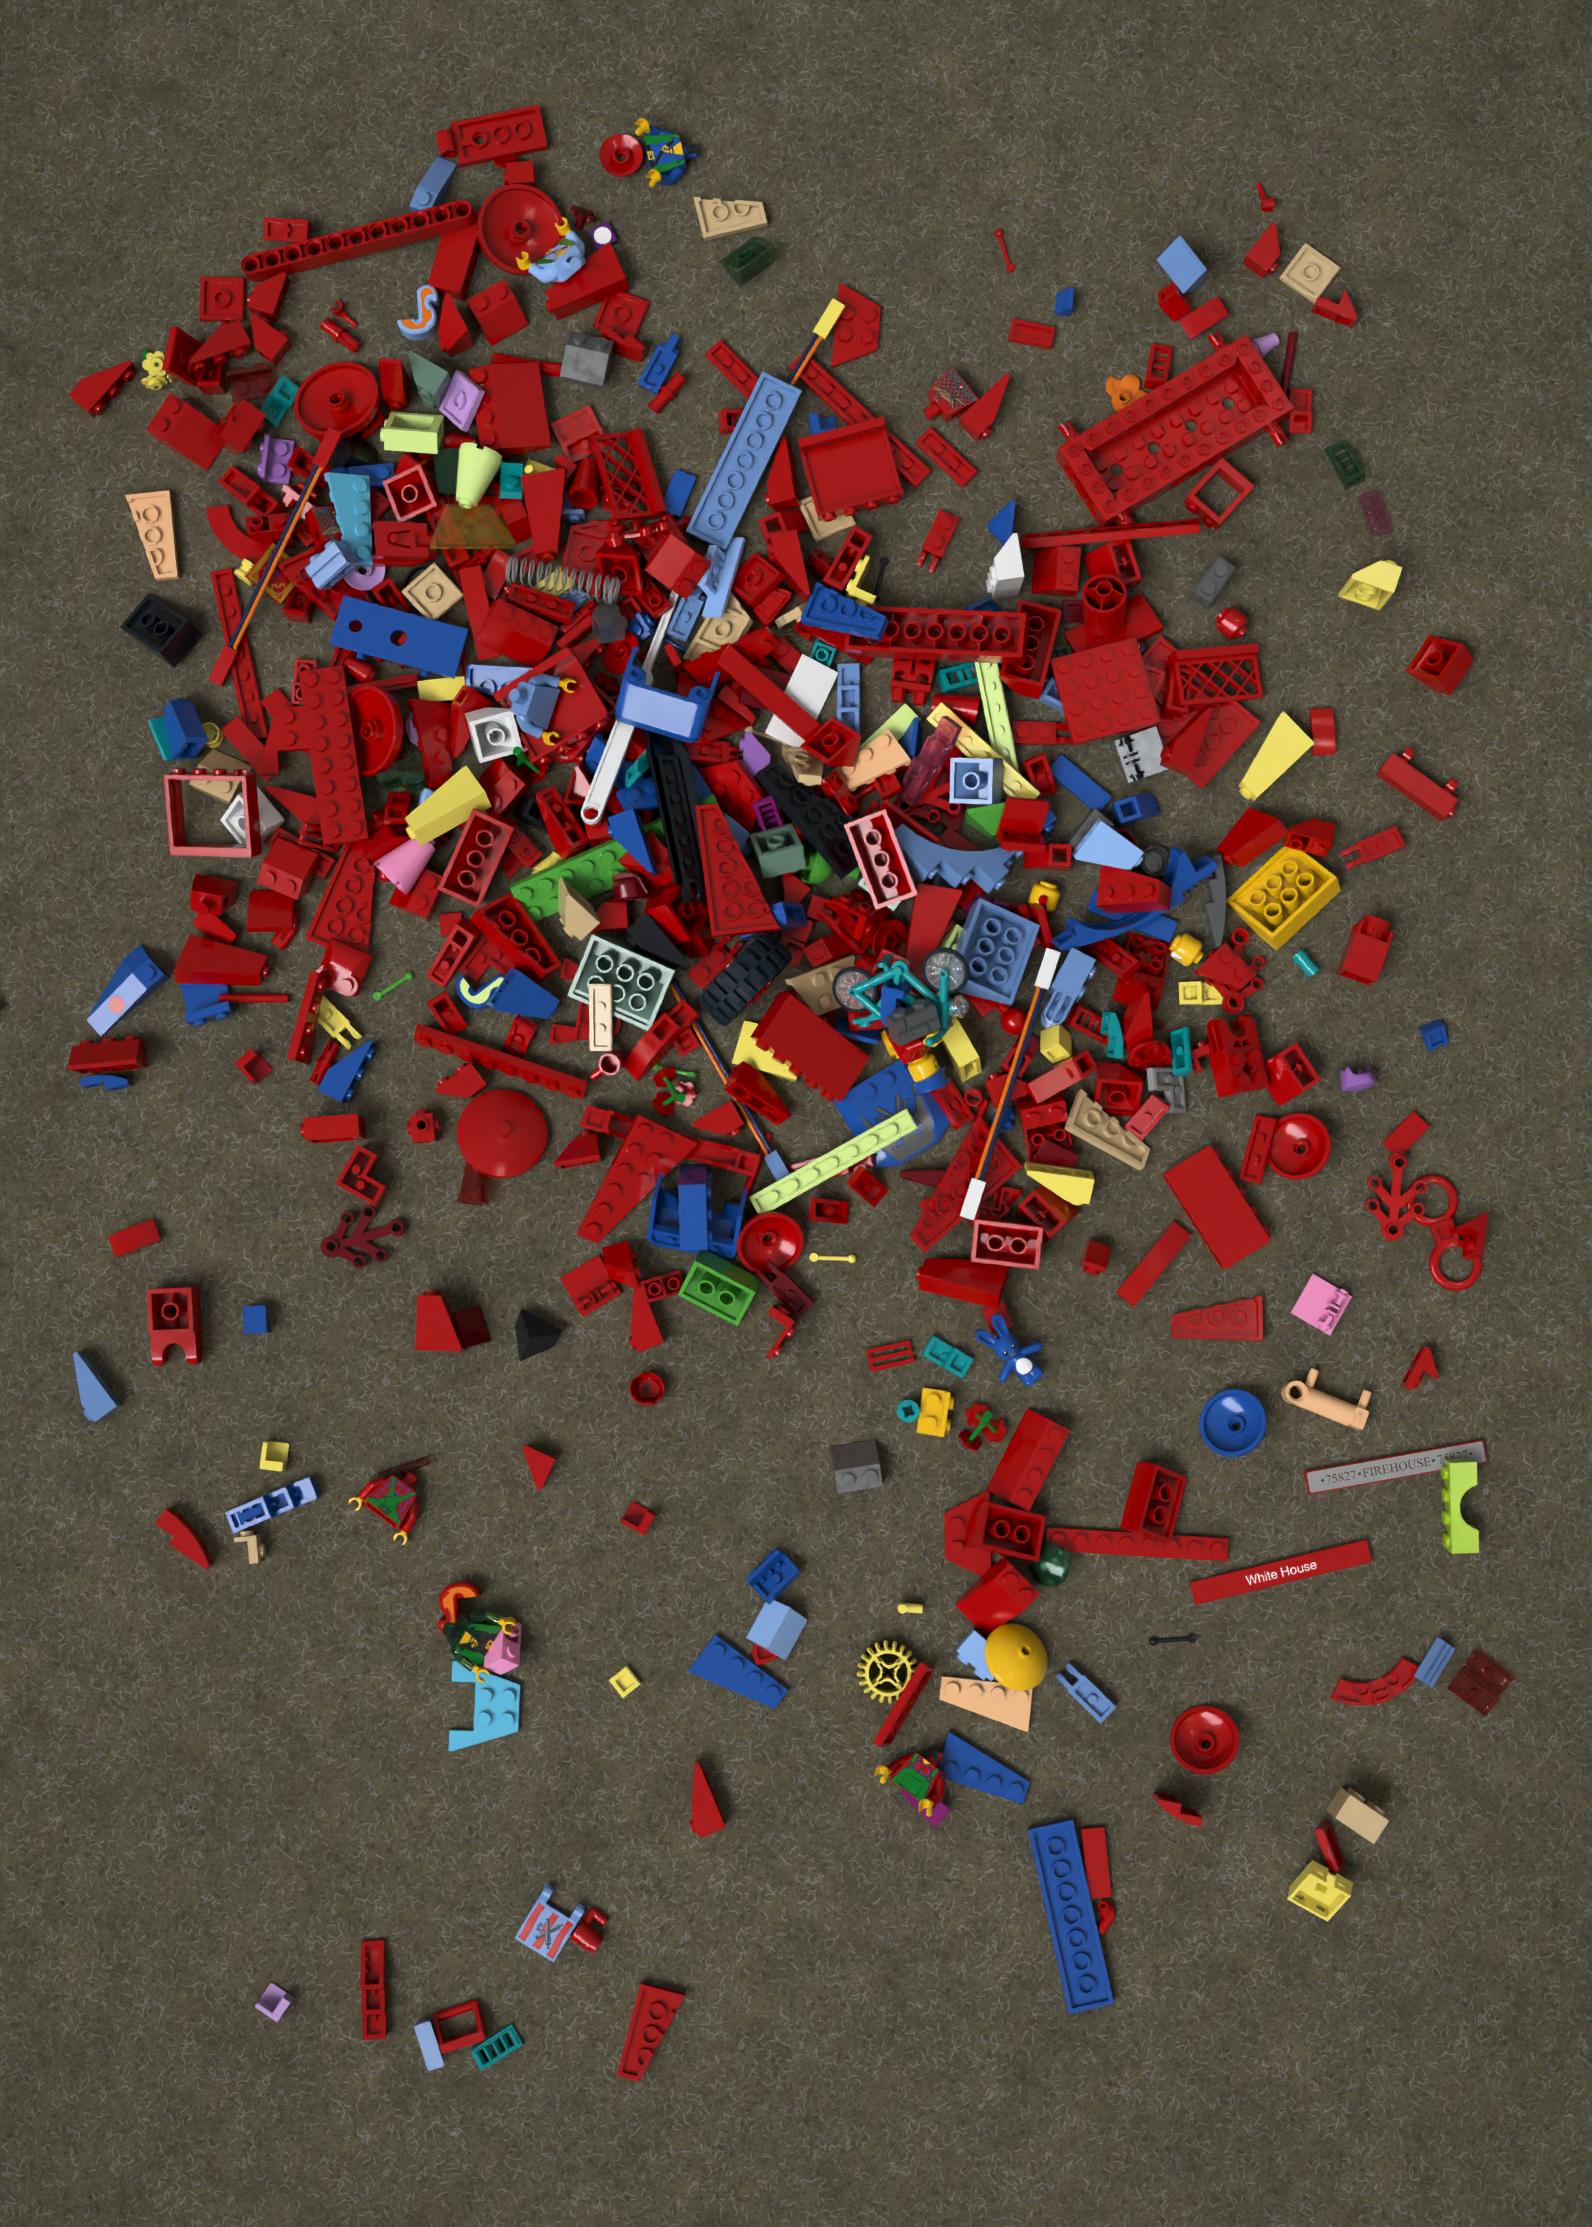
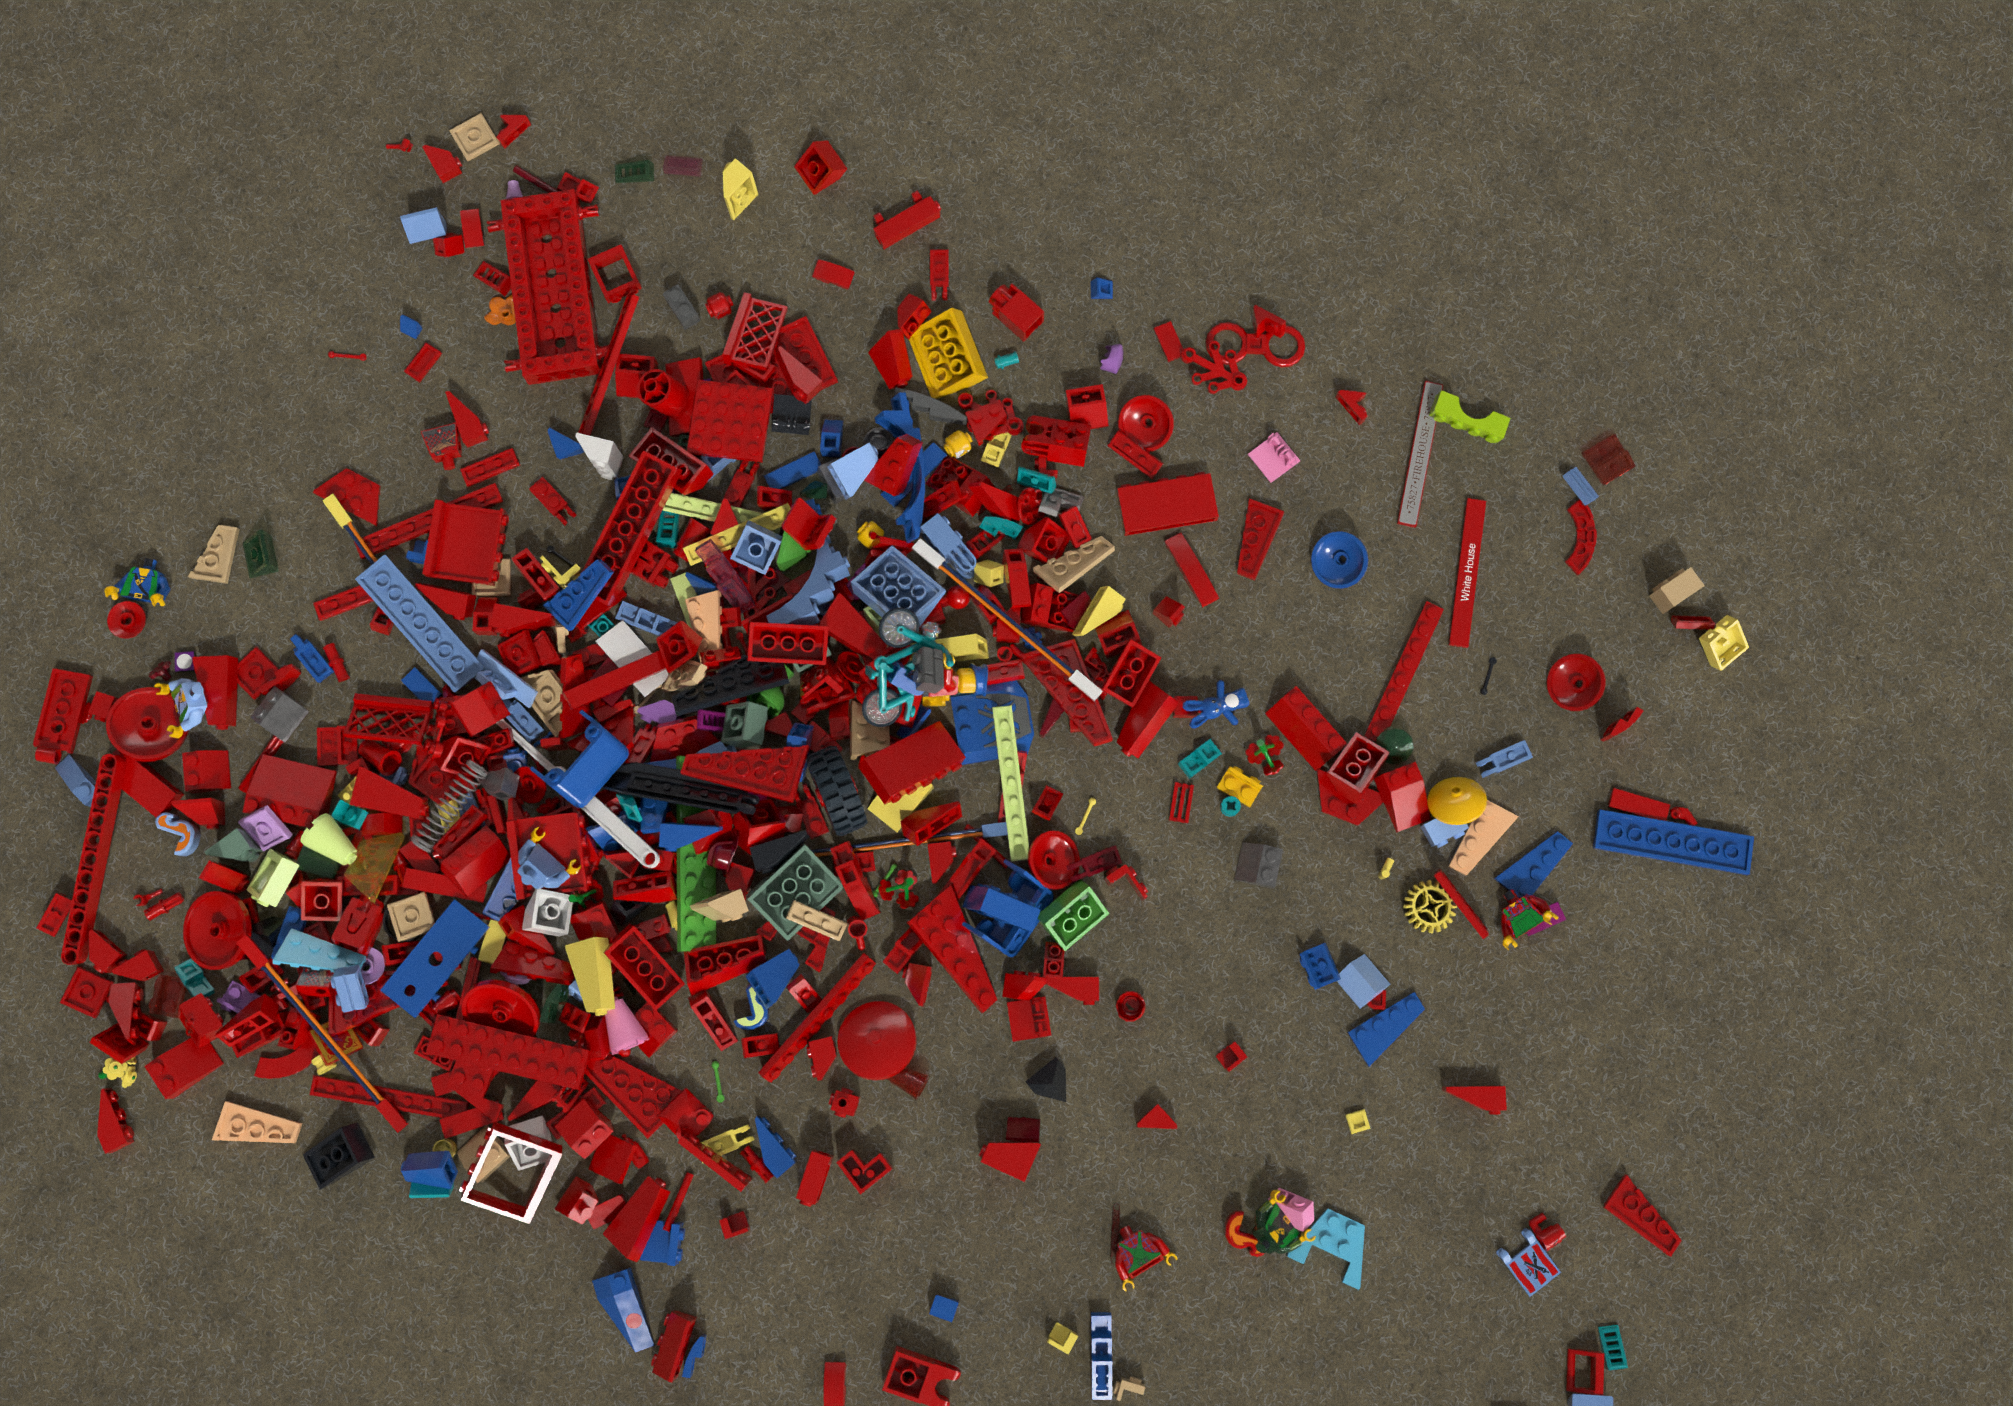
camera: 65 degrees left, 5 degrees down
(258, 477) = (249, 1020): none -> red slope
(360, 1238) = (913, 1193): dark red plant -> none
(448, 921) = (686, 1014): red tile -> none
(482, 957) = (726, 996): red tile -> none
(866, 1186) = (1040, 765): red slope -> none
(993, 733) = (724, 519): none -> red slope
(1055, 858) = (844, 512): red slope -> none
(1056, 571) = (618, 420): red slope -> none
(1067, 816) = (815, 490): none -> slope
(1153, 1502) = (1377, 645): red slope -> none
(1276, 755) = (835, 313): light yellow slope -> none
(1327, 1405) = (1352, 485): light nougat piece -> none

